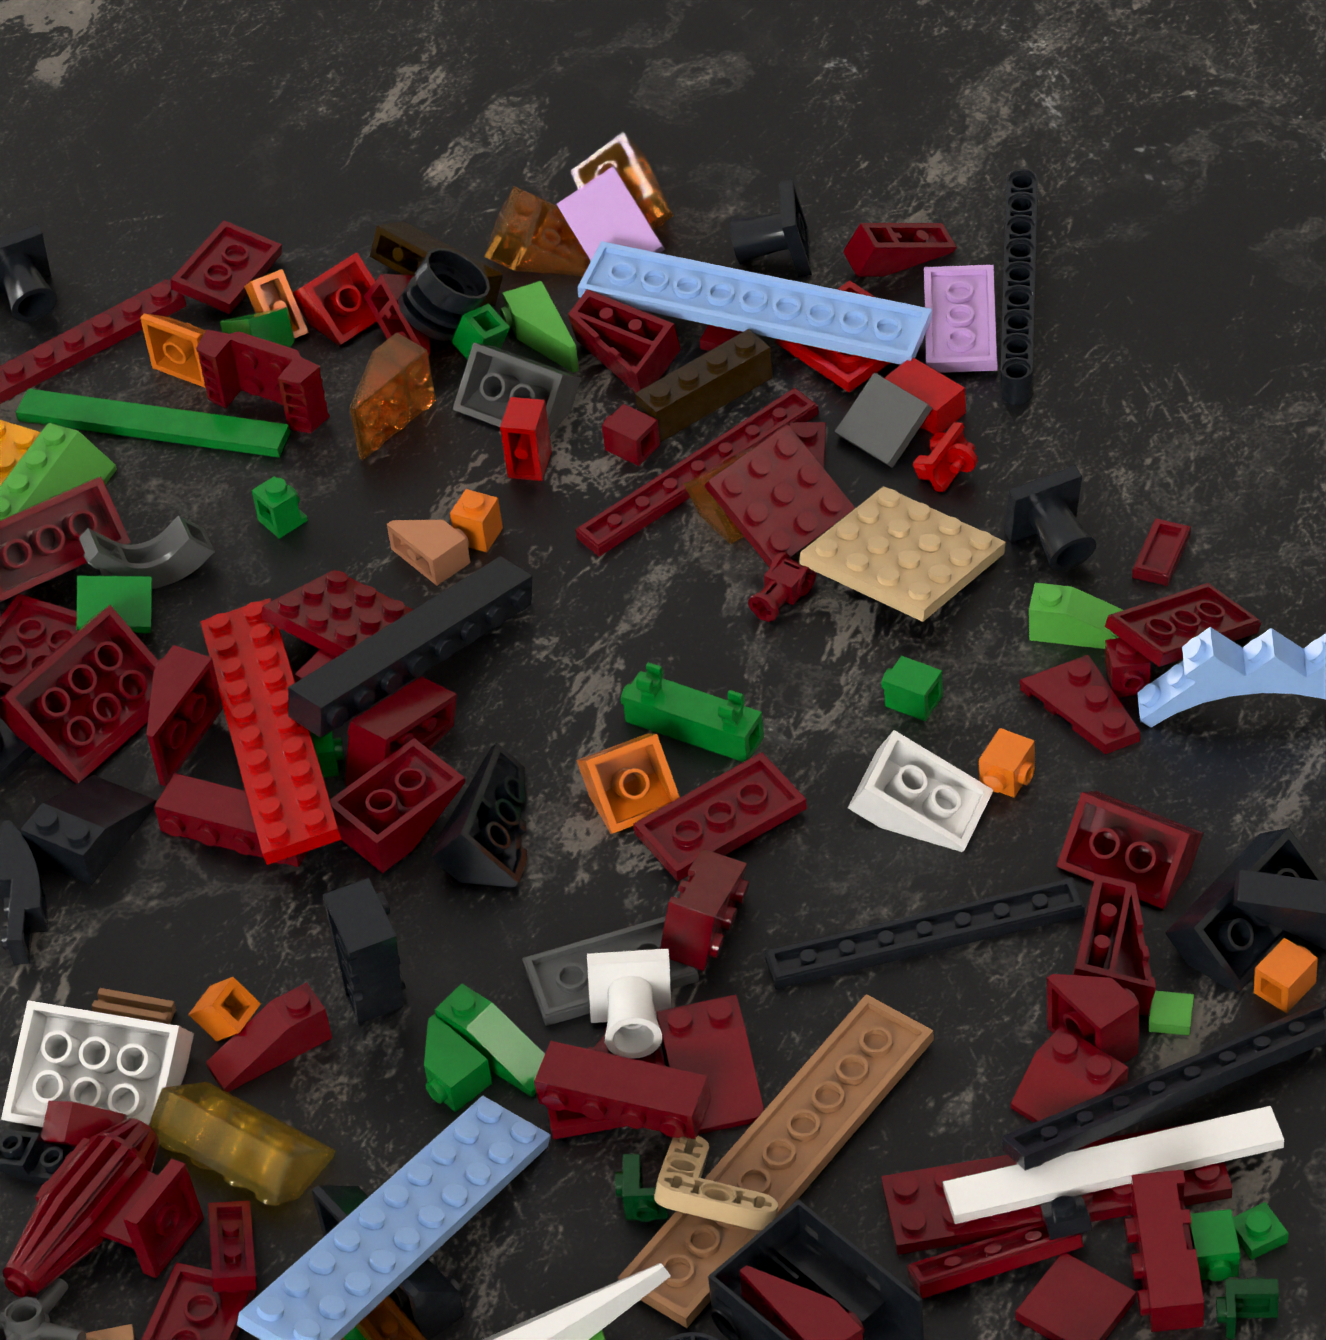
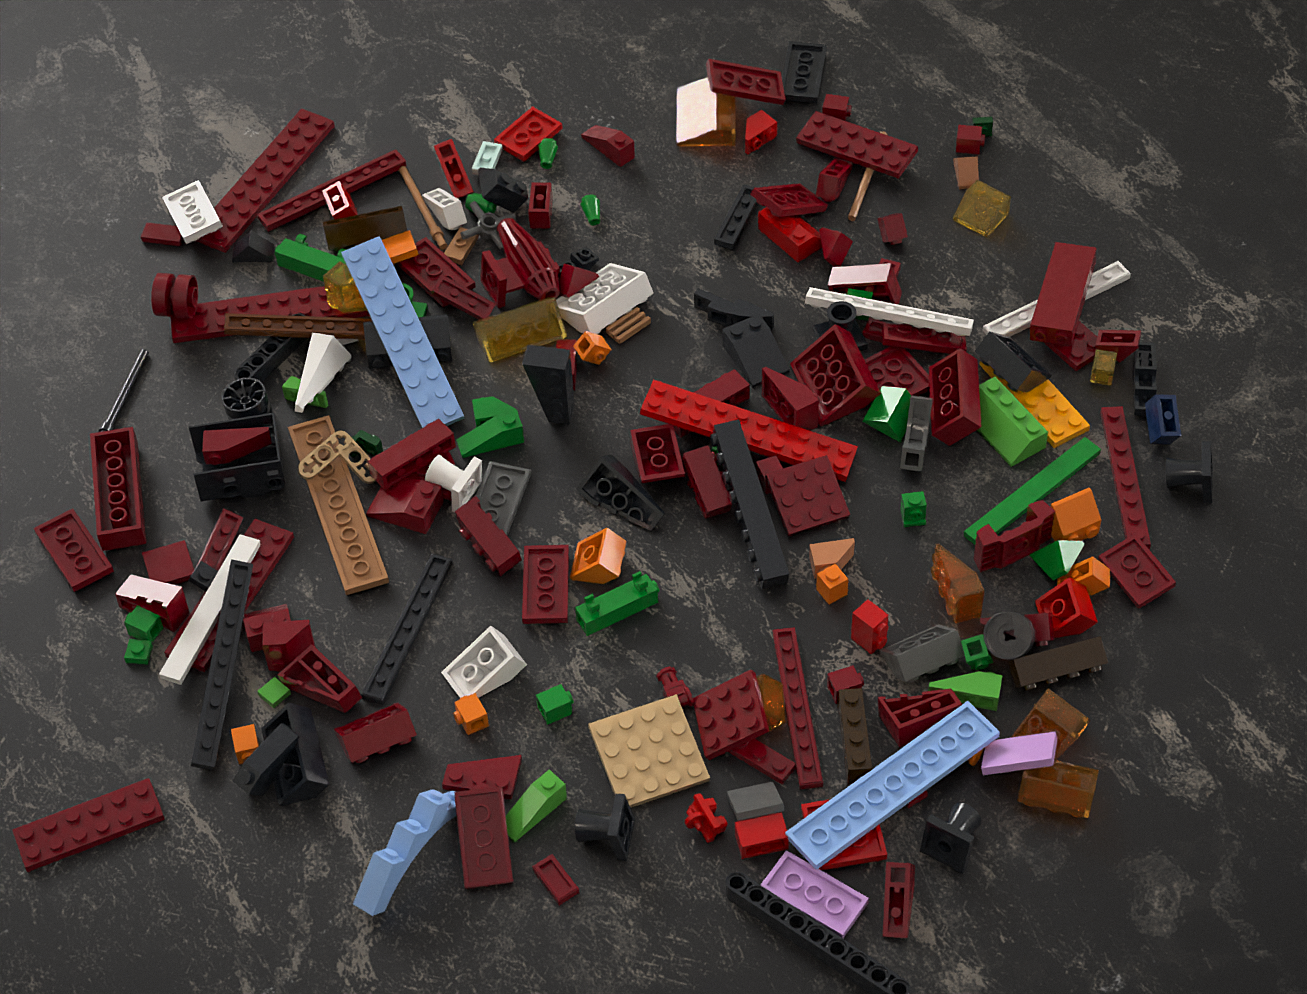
camera: 120 degrees right, 5 degrees up
(1247, 1299) = (108, 620): dark green bracket -> none

